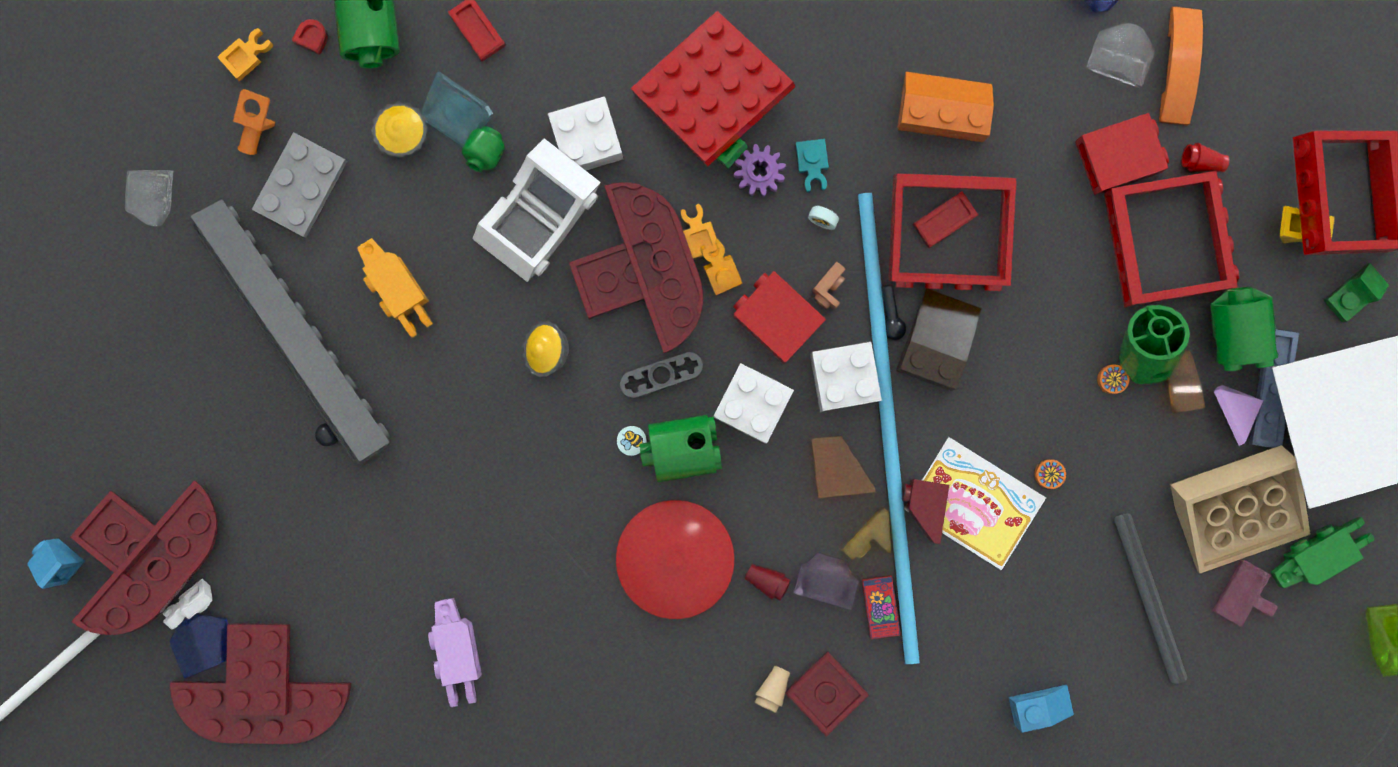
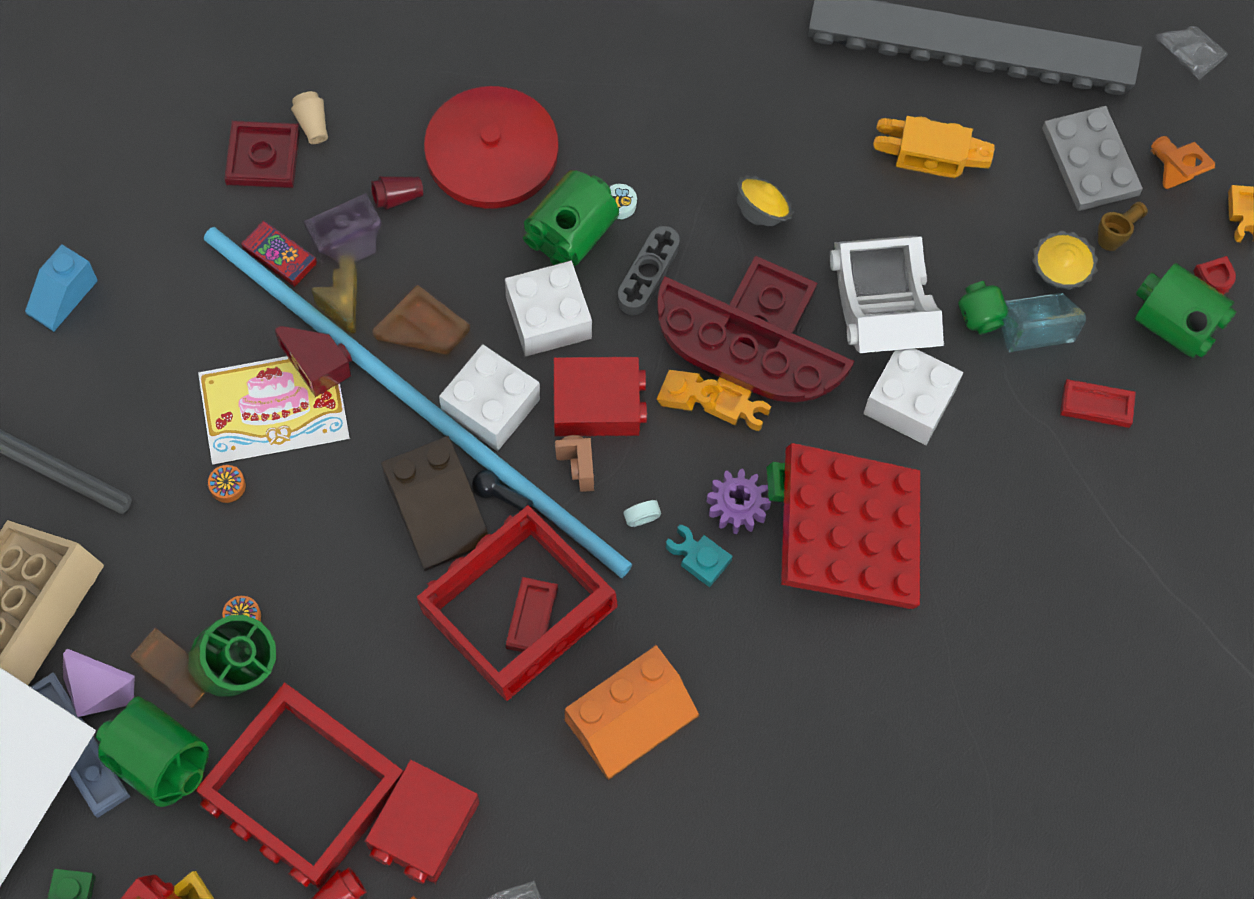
camera: 135 degrees right, 20 degrees down
(337, 120) = (1117, 228): none -> pearl gold bar

